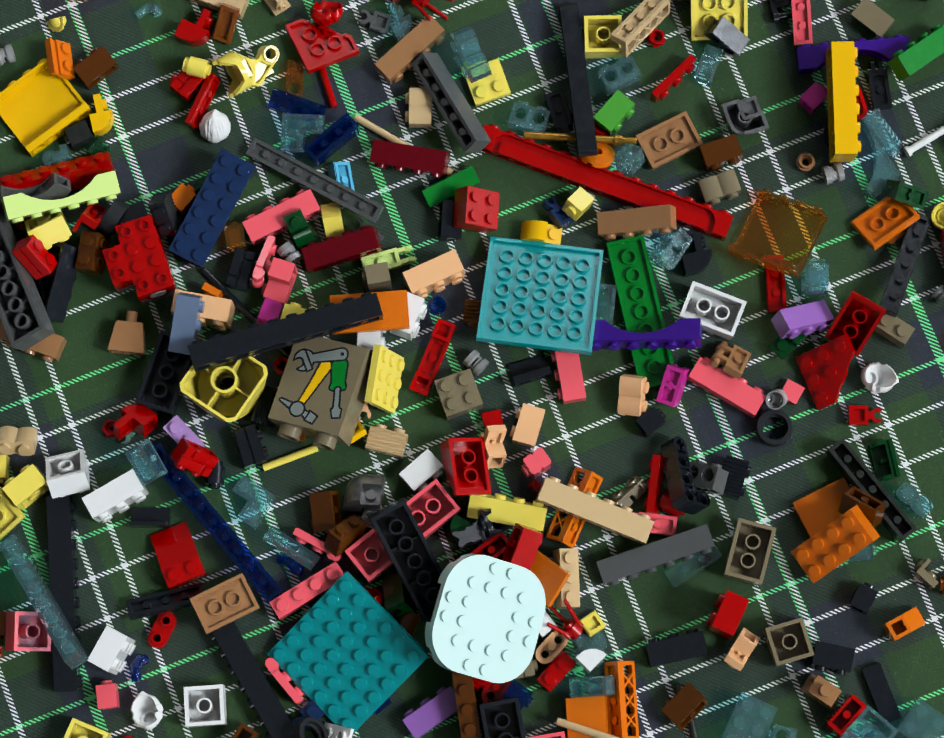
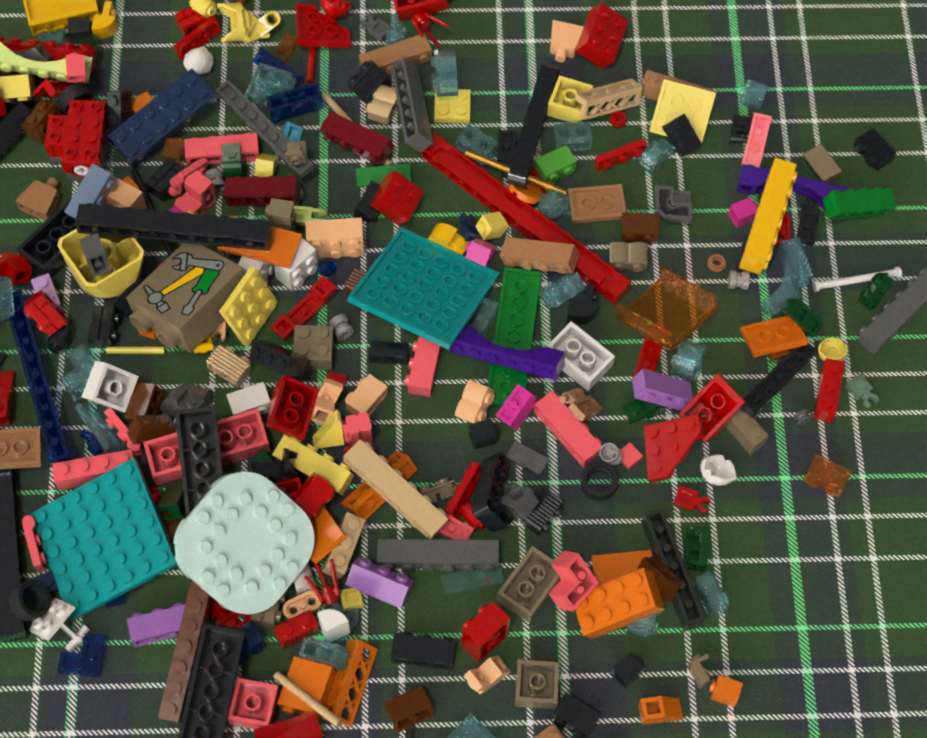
camera: 15 degrees right, 15 degrees down
(106, 190) = (75, 67): none -> coral brick
(227, 392) = (95, 255): none -> dark grey brick
(289, 508) = (110, 386): none -> white brick
(362, 200) = (296, 152): none -> dark tan bracket
(395, 90) = (367, 80): none -> black brick
(433, 421) = (278, 358): none -> black brick
(509, 474) = (330, 433): none -> light yellow slope
(577, 236) = (480, 252): none -> brick
(613, 601) = (379, 582): none -> medium lavender brick
(699, 429) = (527, 458): none -> flat silver tile
(791, 540) = (575, 582): none -> coral brick

